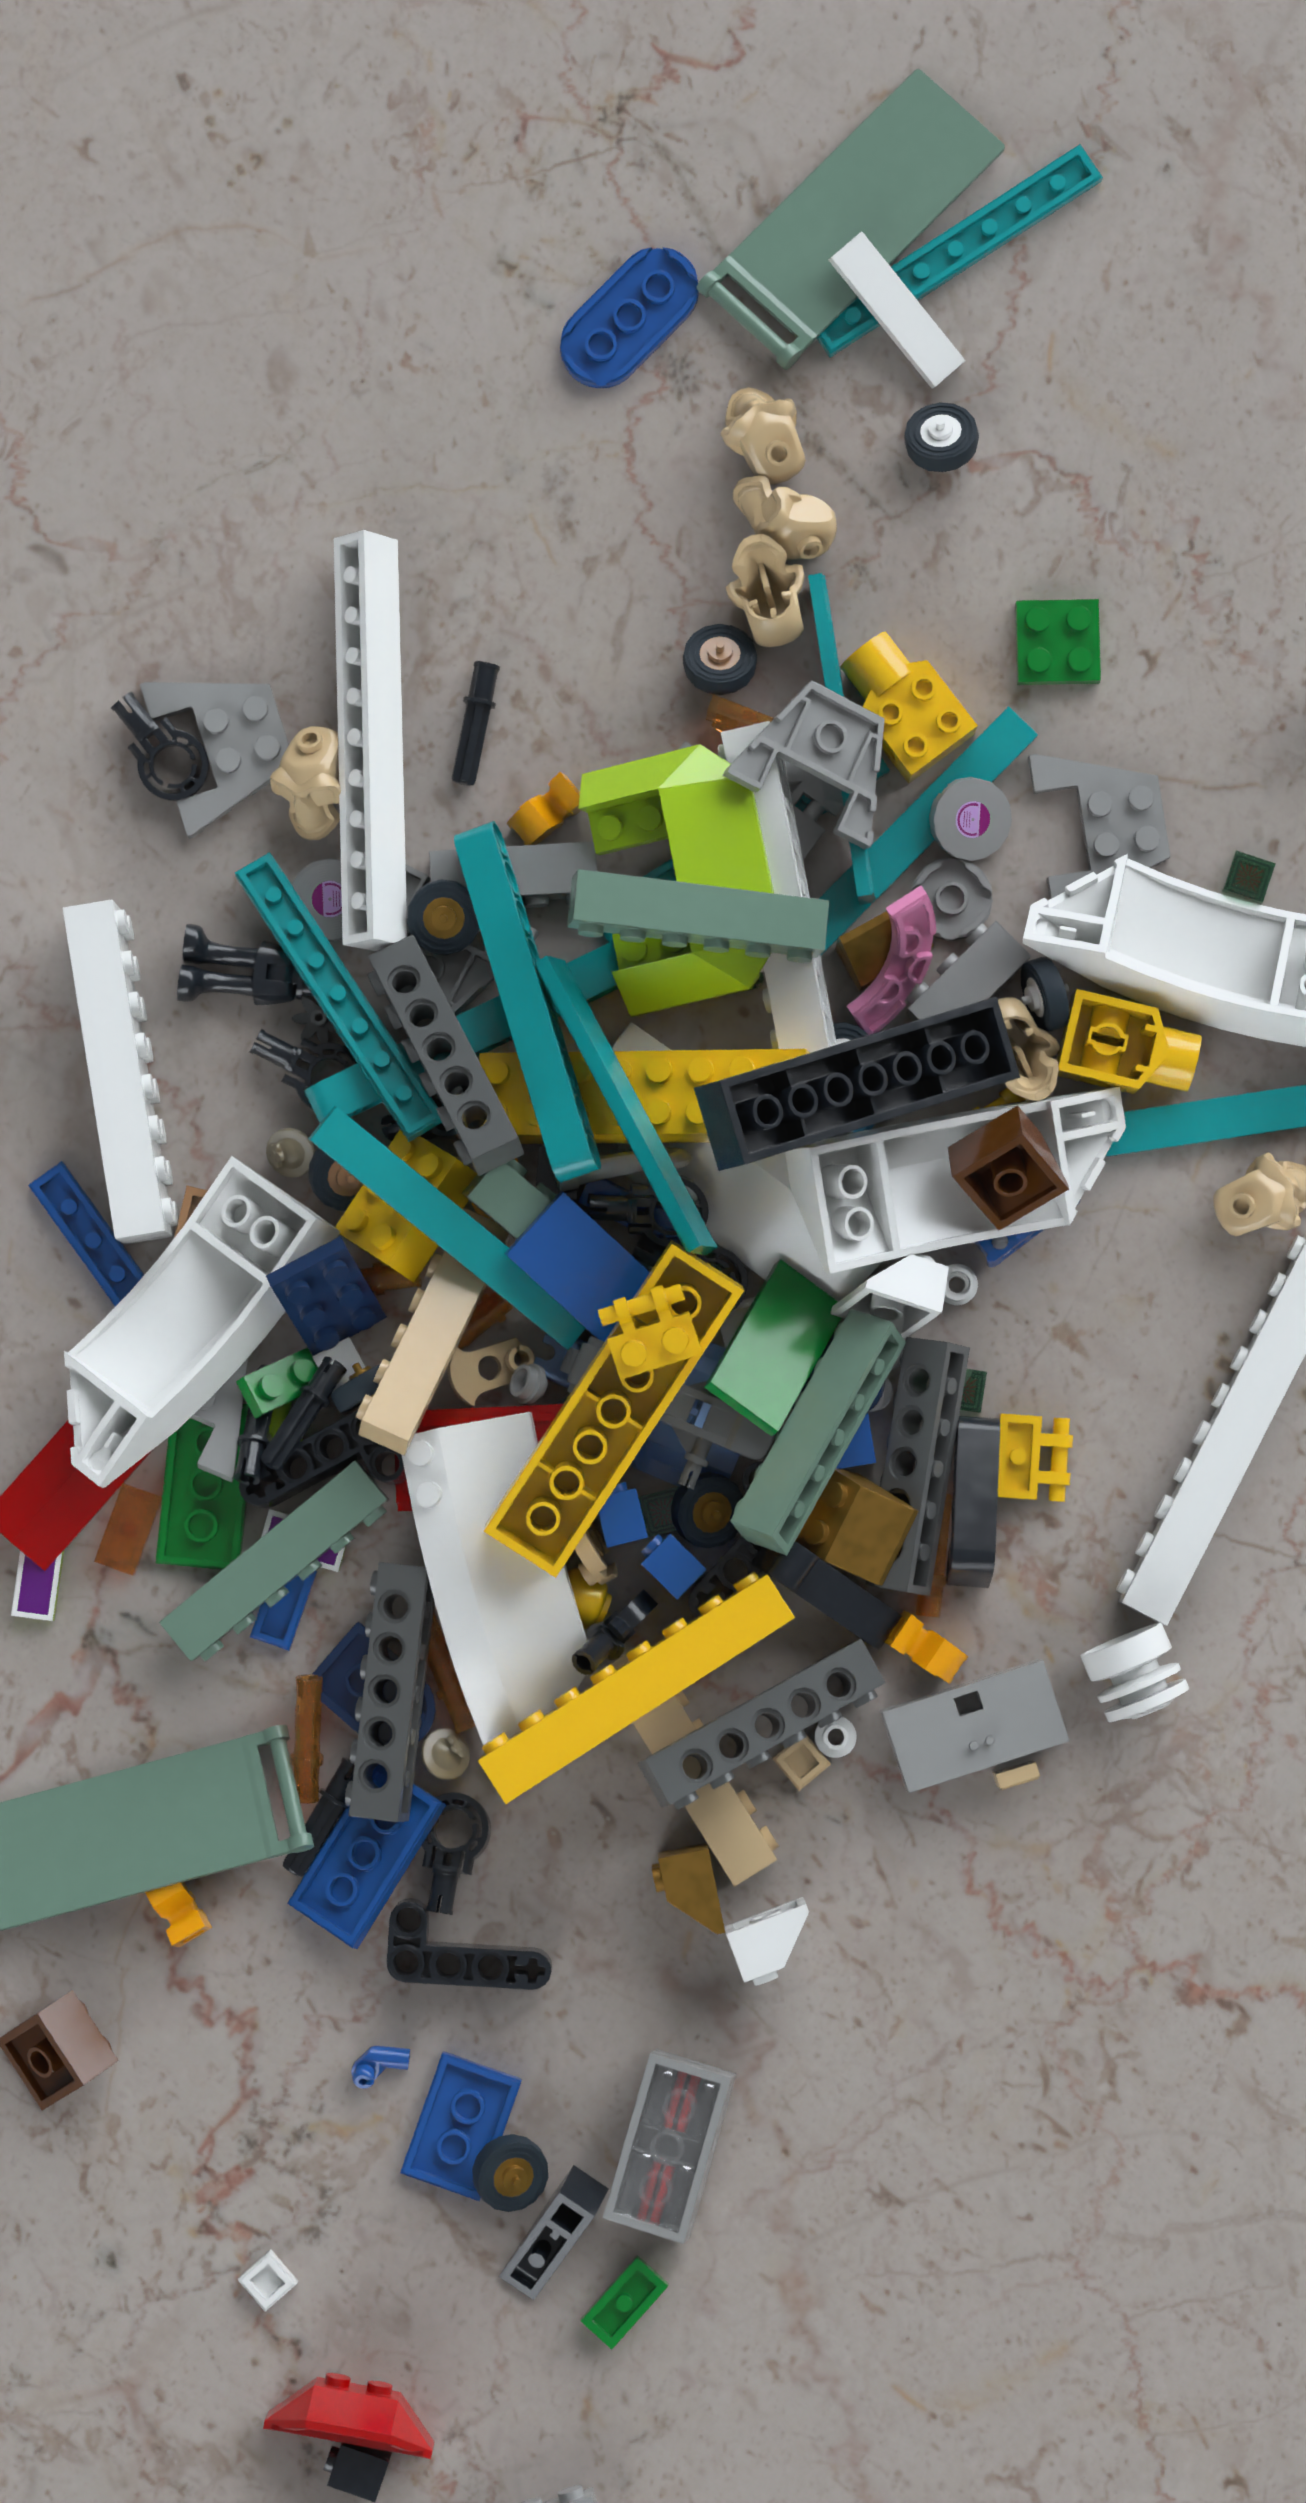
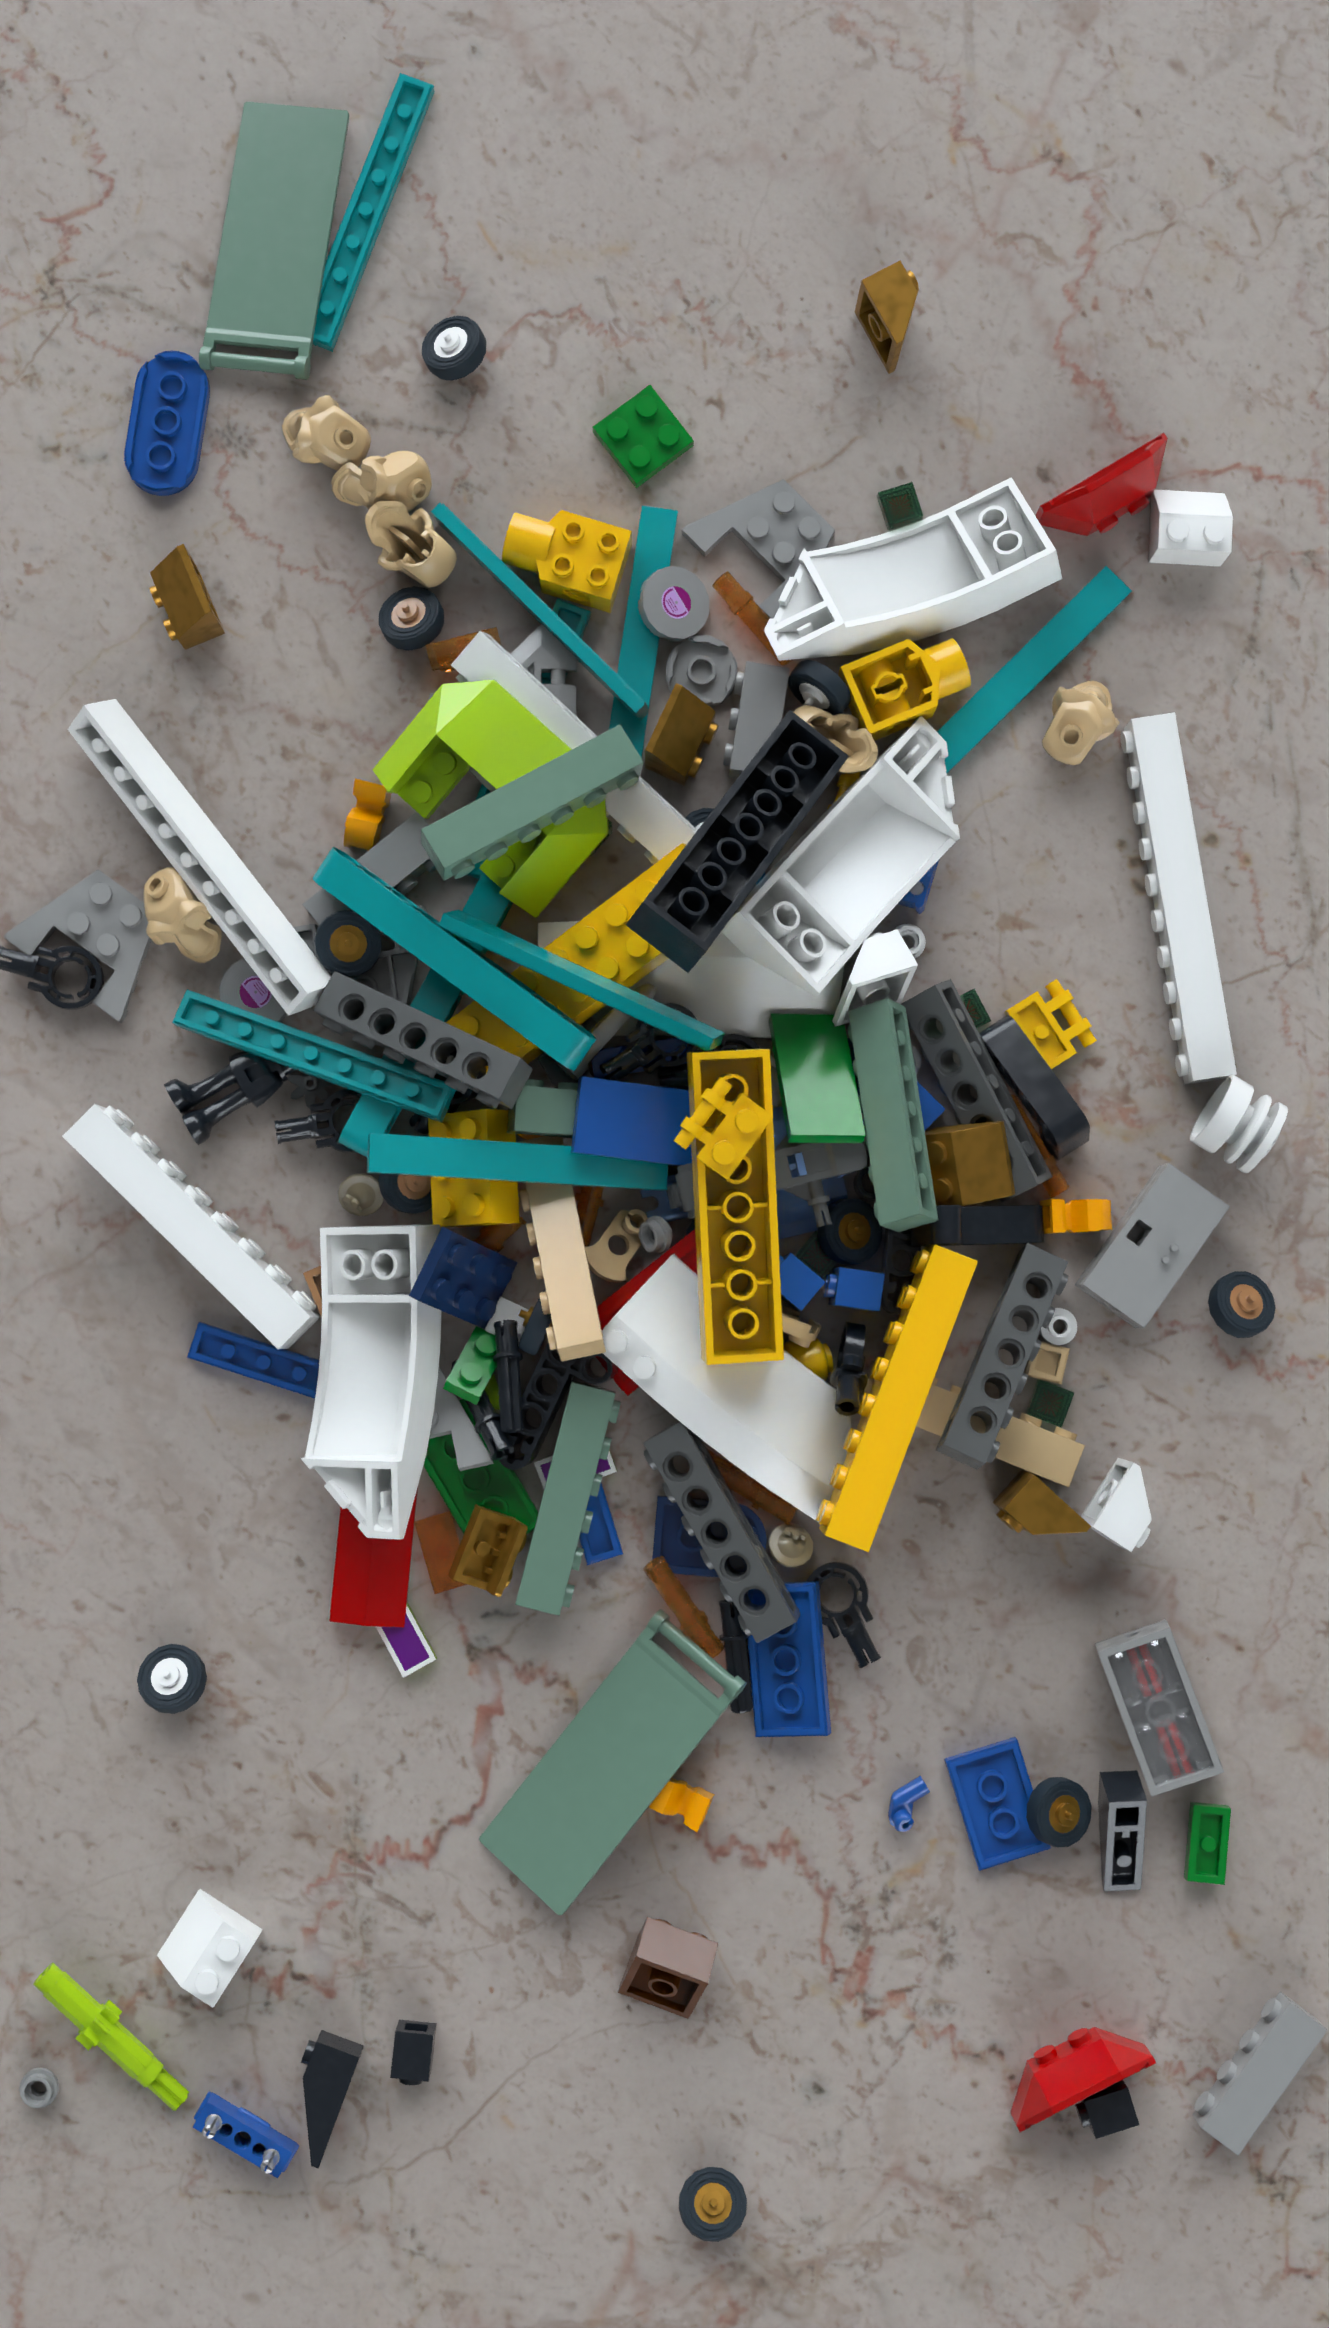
camera: 45 degrees left, 0 degrees up
(170, 1557) = (488, 1550): none -> pearl gold bracket
(267, 2280) = (941, 2019): white tile -> none
(468, 1954) = (913, 1676): black beam -> none
(475, 722) = (267, 788): black axle -> none
(526, 495) = (185, 599): none -> pearl gold slope
(776, 1800) = (1049, 1403): none -> clear green tile
(829, 740) = (536, 614): light grey wing -> none
(896, 310) = (355, 279): white tile -> none
(905, 966) = (705, 736): bright pink tile -> none
(1006, 1168) = (887, 828): reddish brown slope -> none
(1016, 1775) = (1206, 1259): tan tile -> none
(1017, 1839) = (1241, 1304): none -> black wheel
(1034, 863) = (744, 606): none -> clear orange axle

